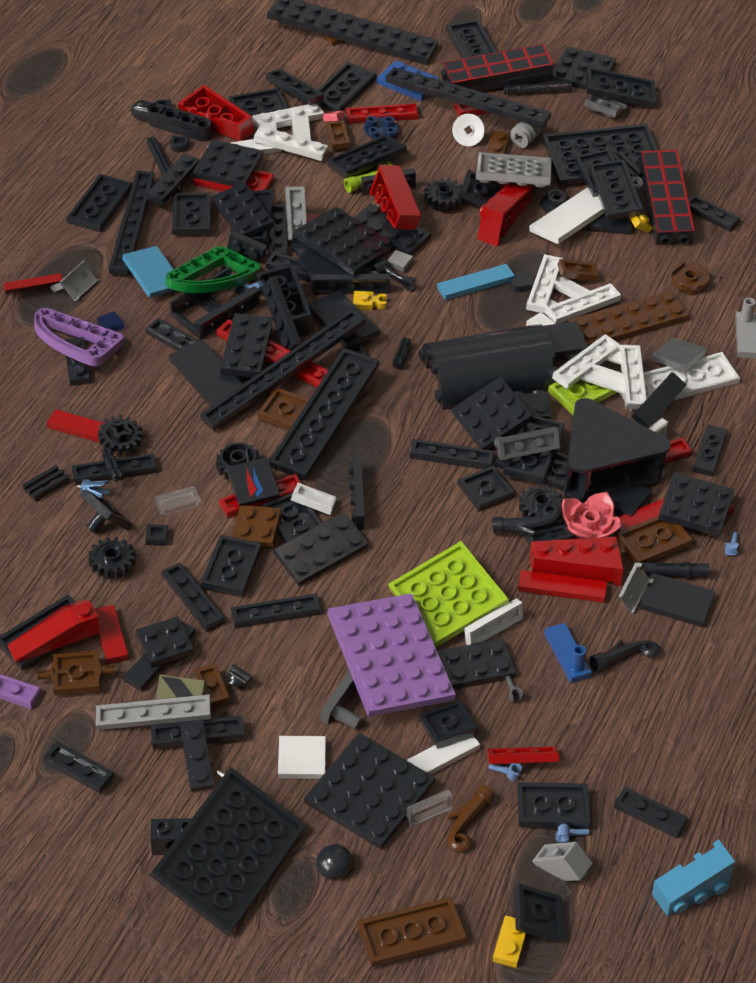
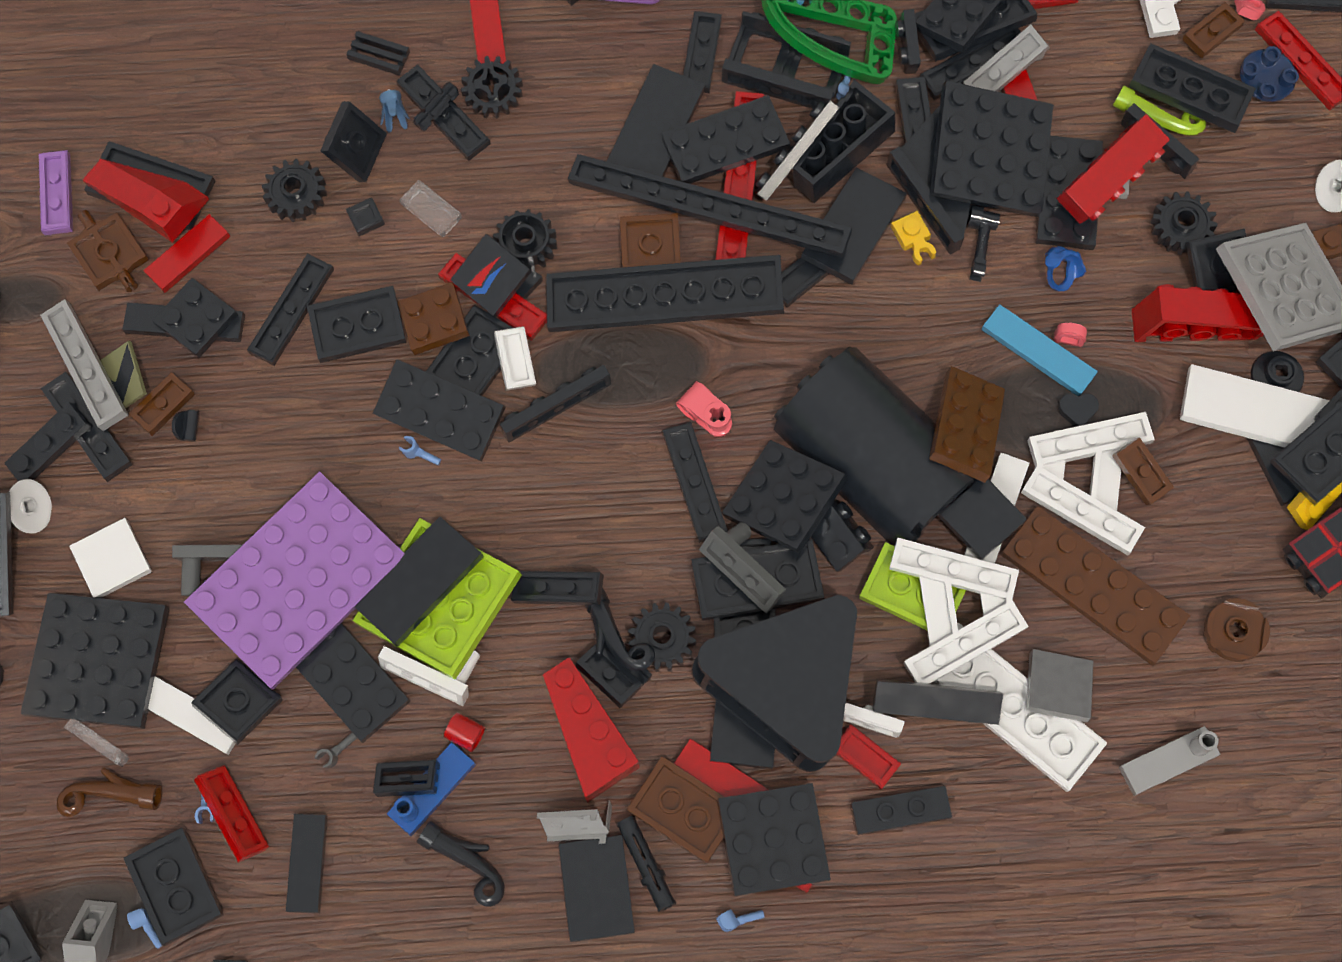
camera: 65 degrees right, 25 degrees up
(275, 611) = (318, 412): black tile -> none
(336, 572) = (415, 451): none -> medium blue hand
(400, 260) = (1016, 235): light grey tile -> none
(401, 353) = (841, 327): black axle -> none
(410, 427) = (702, 406): none -> coral piece
(434, 593) = (419, 581): none -> black tile
(435, 247) = (1074, 268): none -> blue piece
(476, 263) = (1070, 334): none -> coral tile
(483, 531) = (558, 588): none -> black tile
(486, 488) = (659, 553): black tile -> none
(504, 317) = (967, 424): none -> reddish brown plate
(542, 619) = (464, 732): none -> red beam
(558, 660) = (411, 789): none -> black tile
(562, 586) = (540, 730): red tile -> none
(578, 732) = (306, 863): none -> black tile
(591, 518) = (664, 688): coral brick -> none

